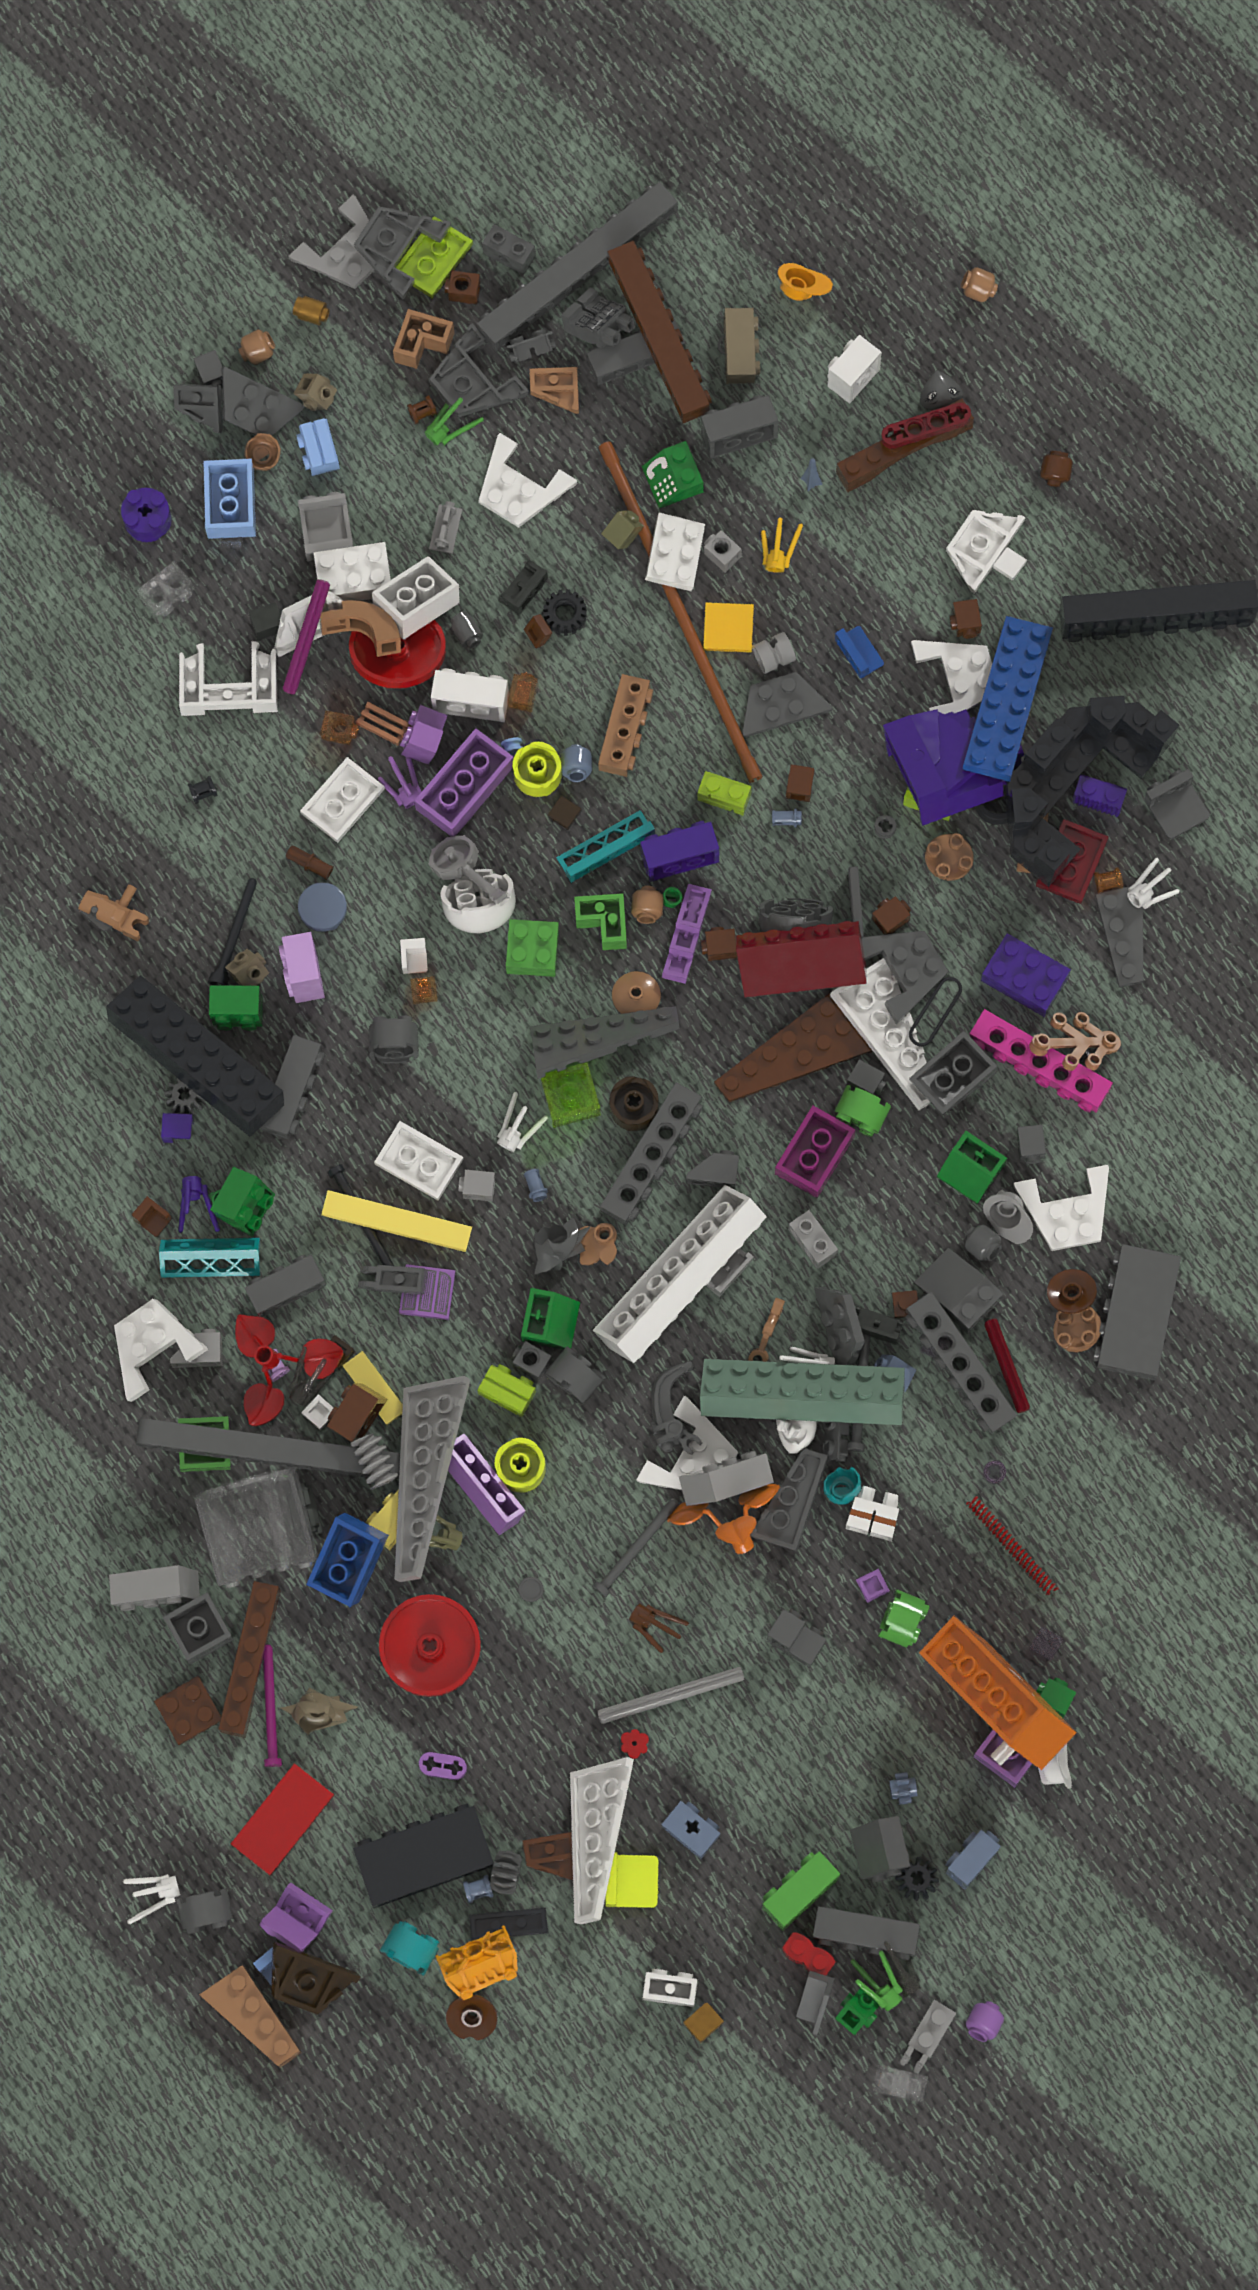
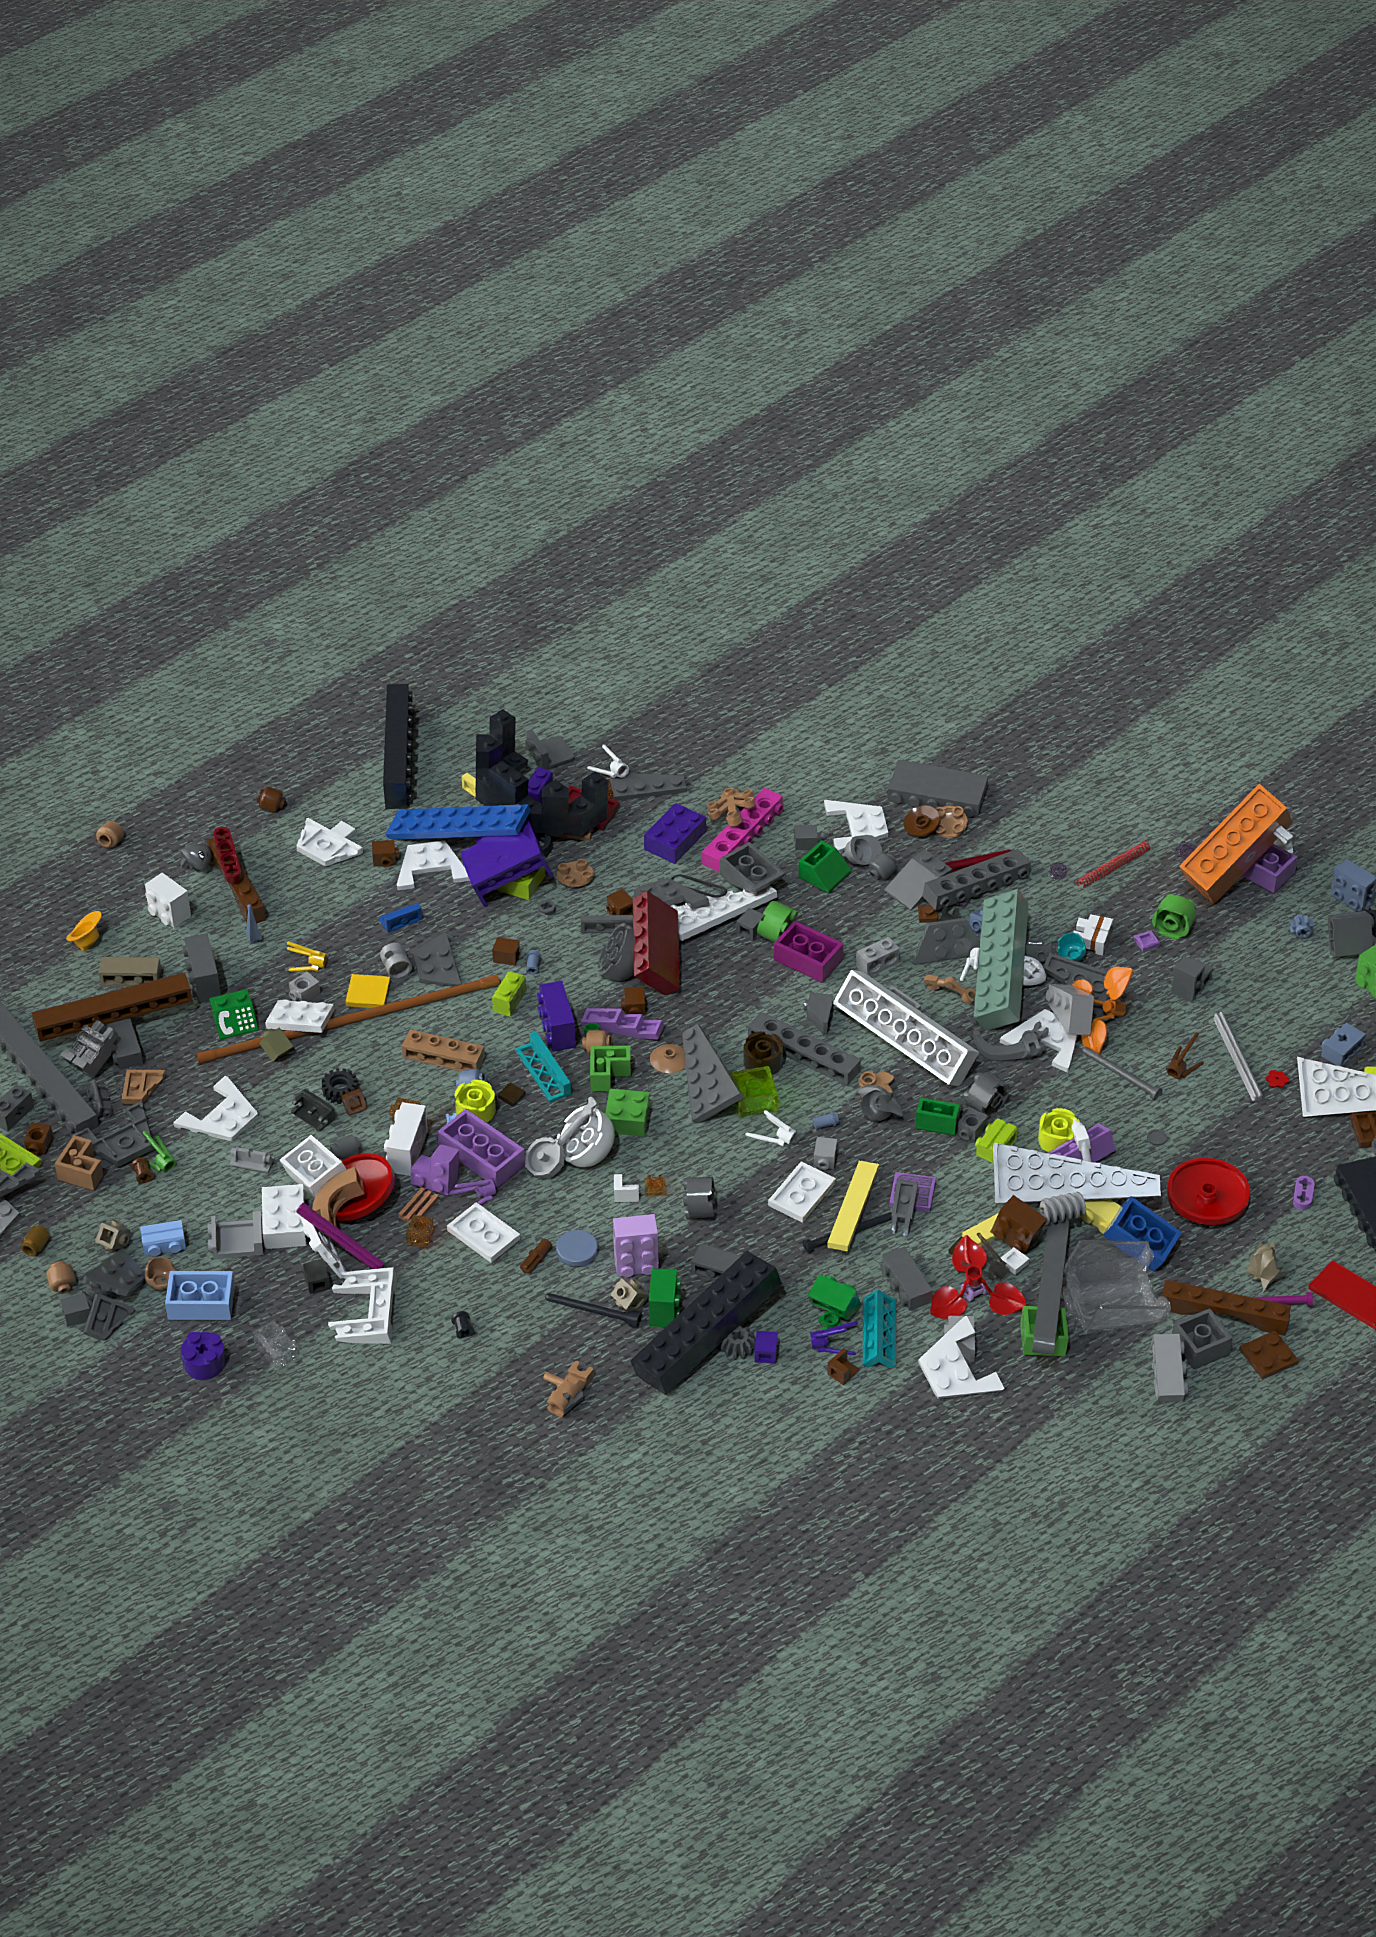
camera: 90 degrees left, 30 degrees down
(489, 1486) = (1082, 1139): none -> white piece
(803, 1047) = (722, 963): reddish brown wing -> none

